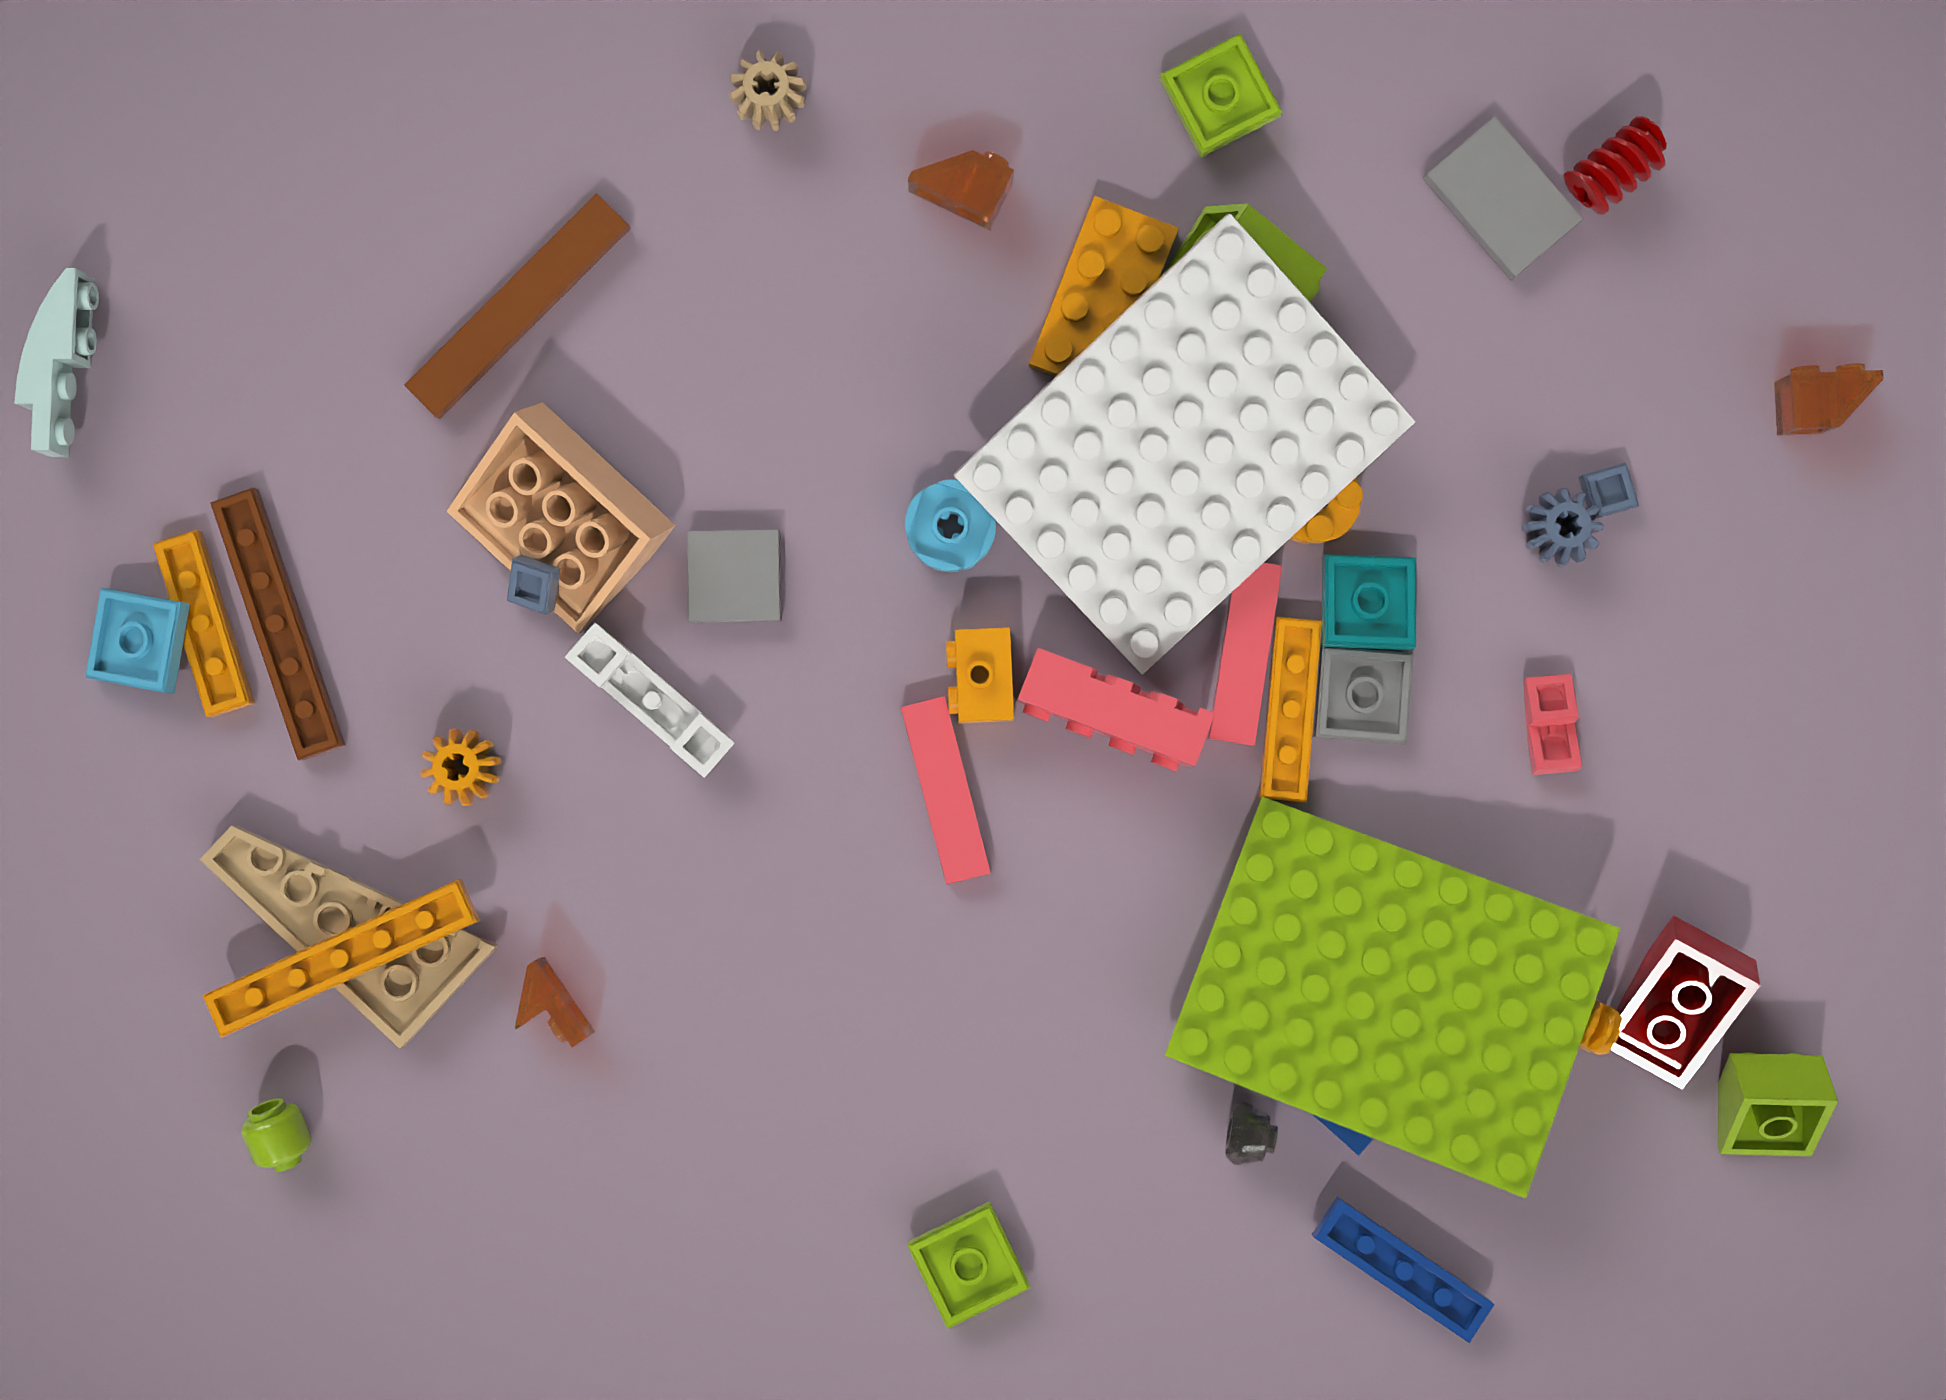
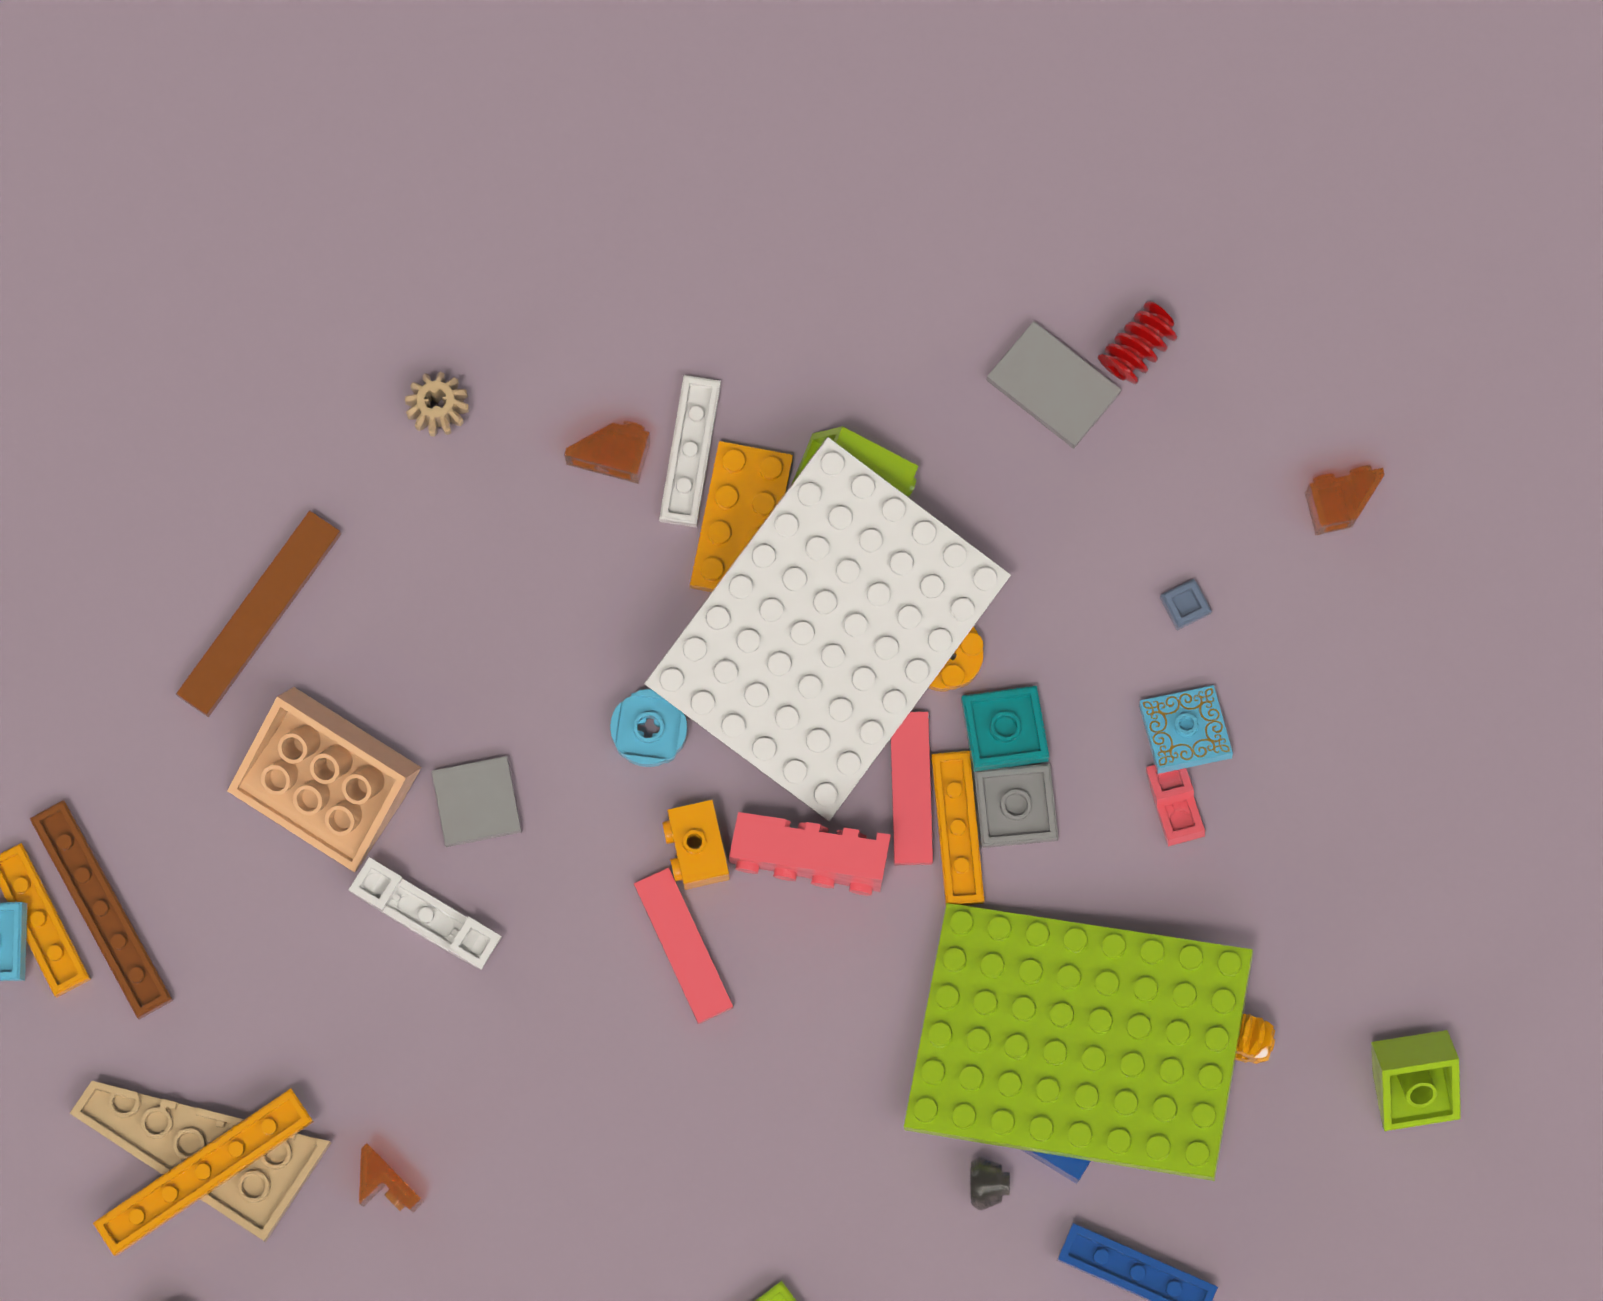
camera: 10 degrees left, 10 degrees down
(447, 776) = (264, 1006): light orange gear -> none
(533, 584) = (311, 837): sand blue tile -> none
(1057, 201) = (690, 451): none -> white tile
(1220, 95) = (807, 343): lime plate -> none
(1577, 524) = (1137, 642): sand blue gear -> none
(1582, 641) = (1185, 729): none -> medium azure plate
(1683, 1001) = (1323, 1009): red slope -> none

